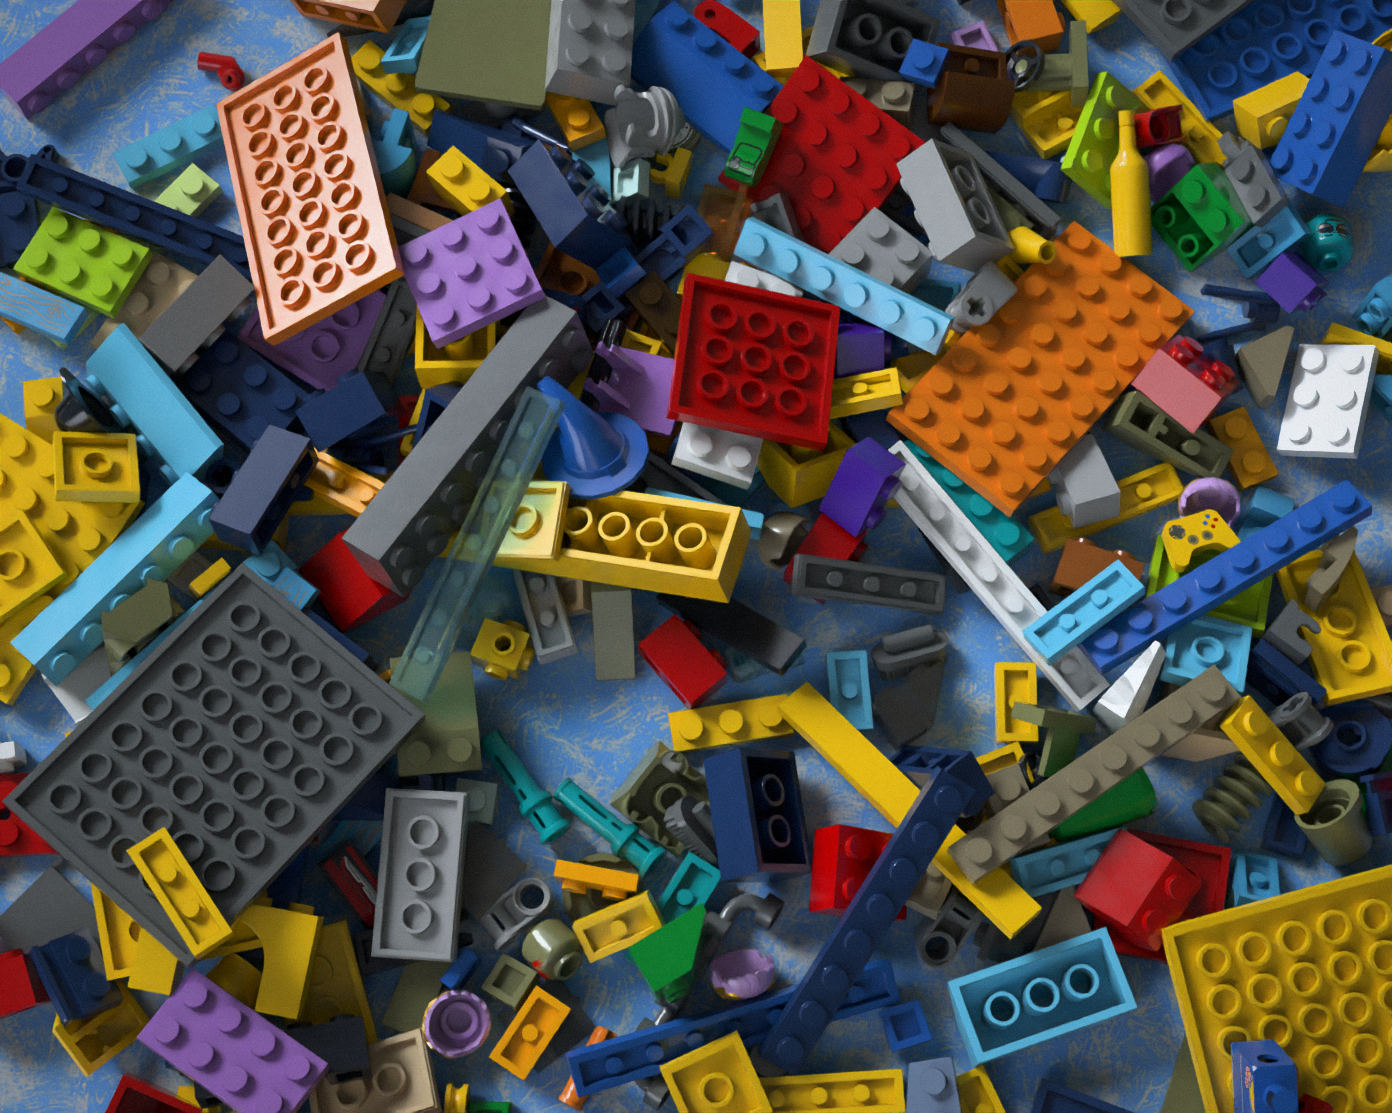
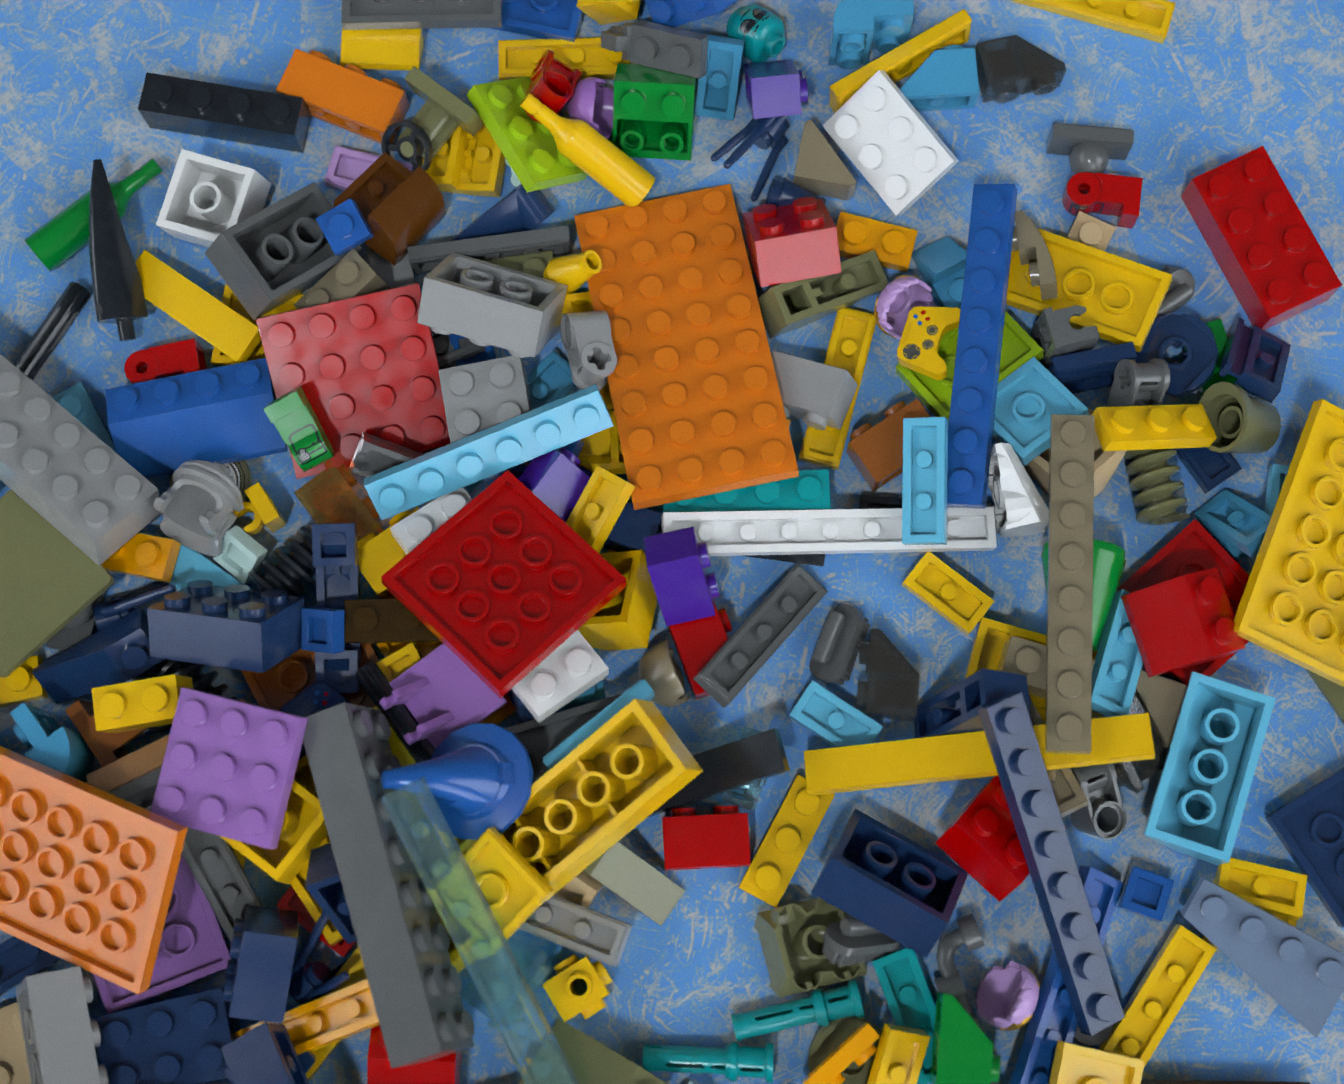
camera: 50 degrees left, 5 degrees up
(1060, 742) = (1000, 571): olive piece -> none

